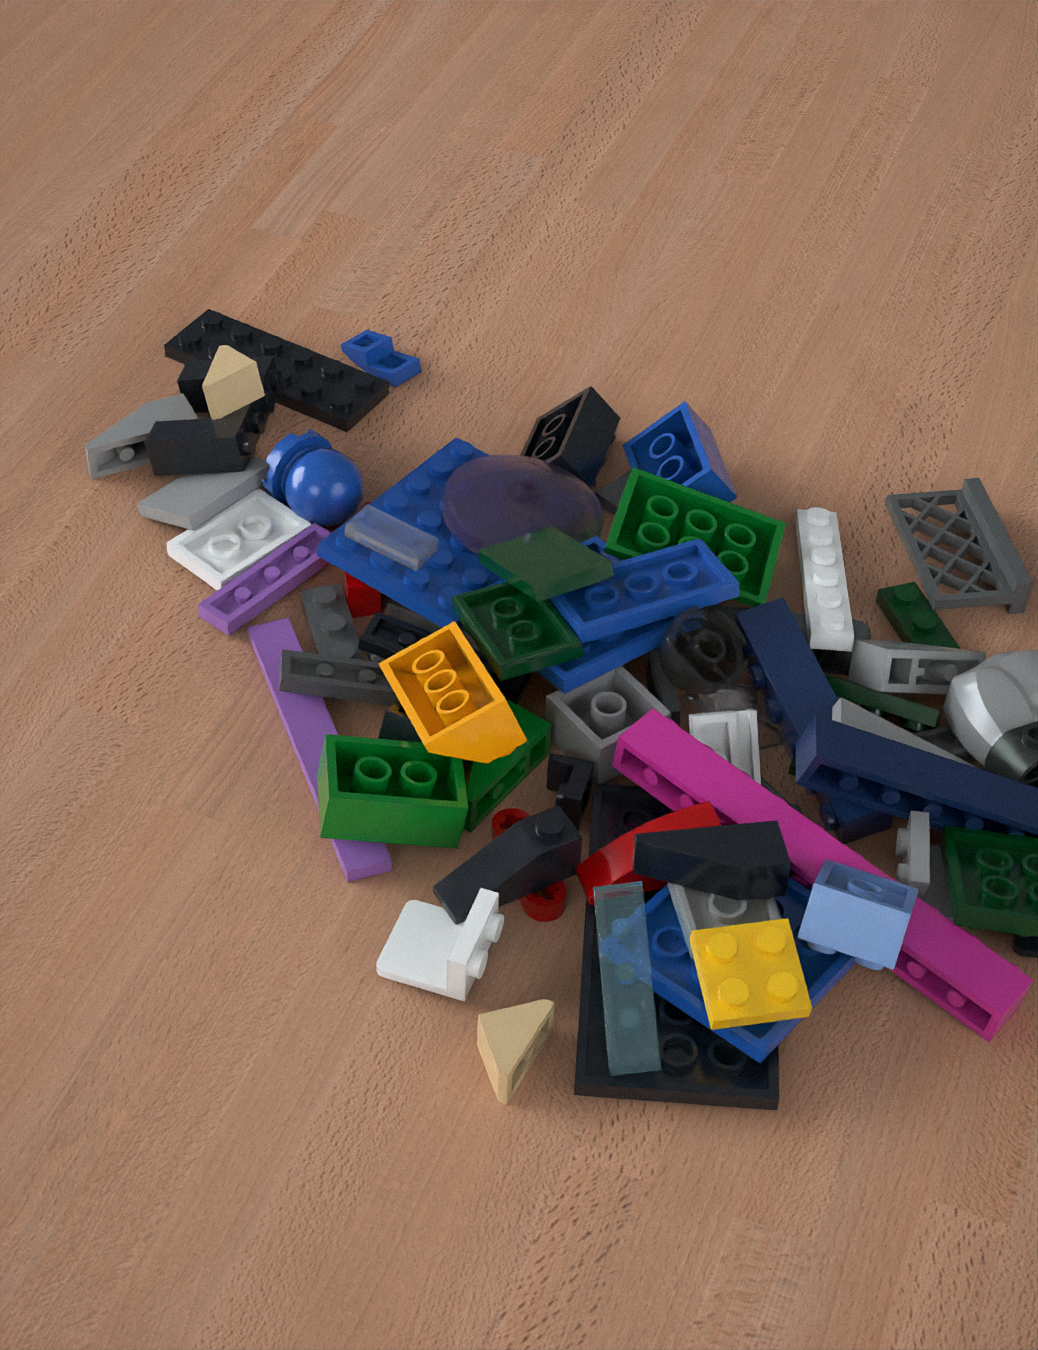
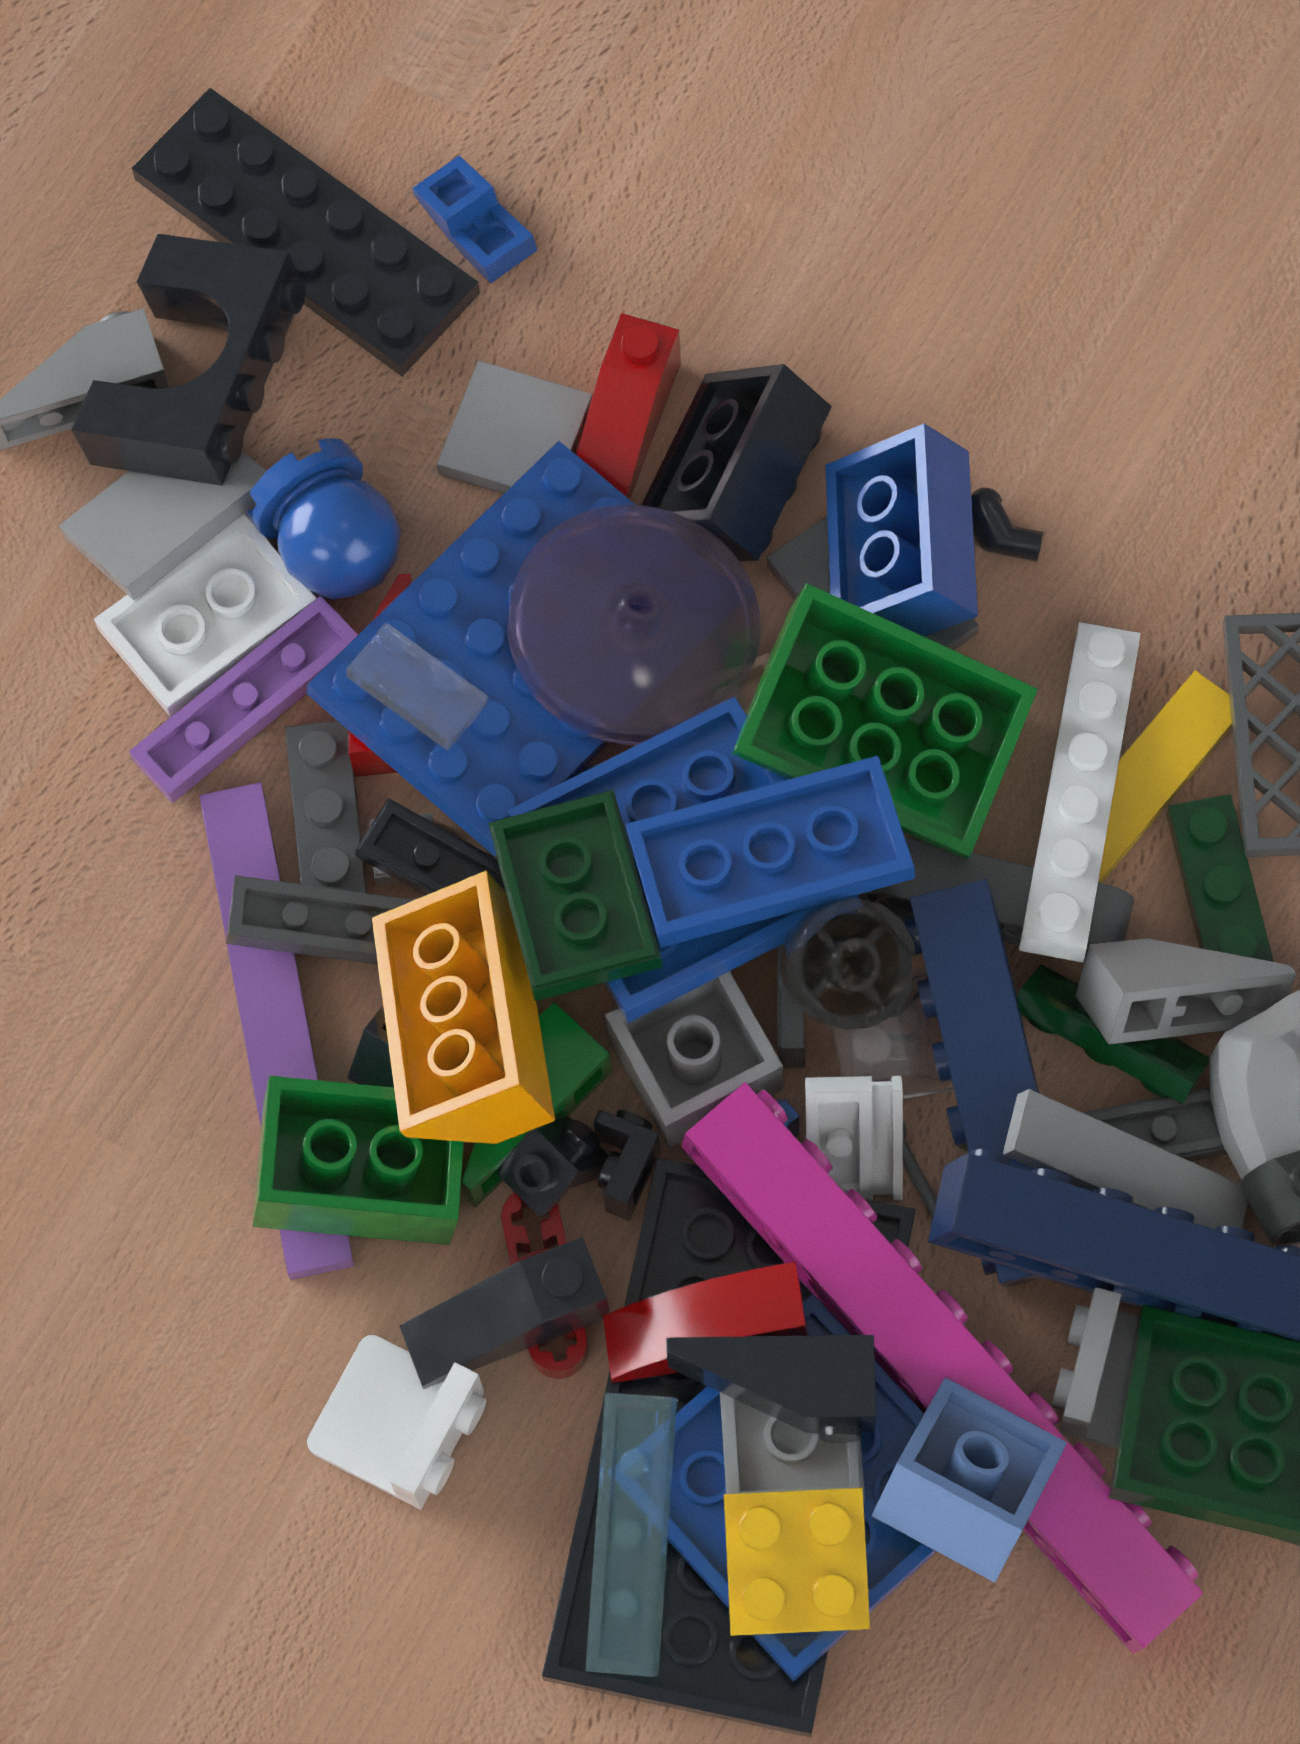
camera: 15 degrees right, 25 degrees up
(231, 382) = (205, 335): tan slope -> none
(414, 441) = (509, 425): none -> light grey tile
(496, 415) = (629, 399): none -> red slope
(512, 1041) = (468, 1599): tan slope -> none
(520, 789) = (552, 1162): none -> black bracket
(545, 563) = (633, 783): dark green tile -> none
(742, 477) = (995, 531): none -> black arm
(872, 567) = (1163, 763): none -> yellow tile

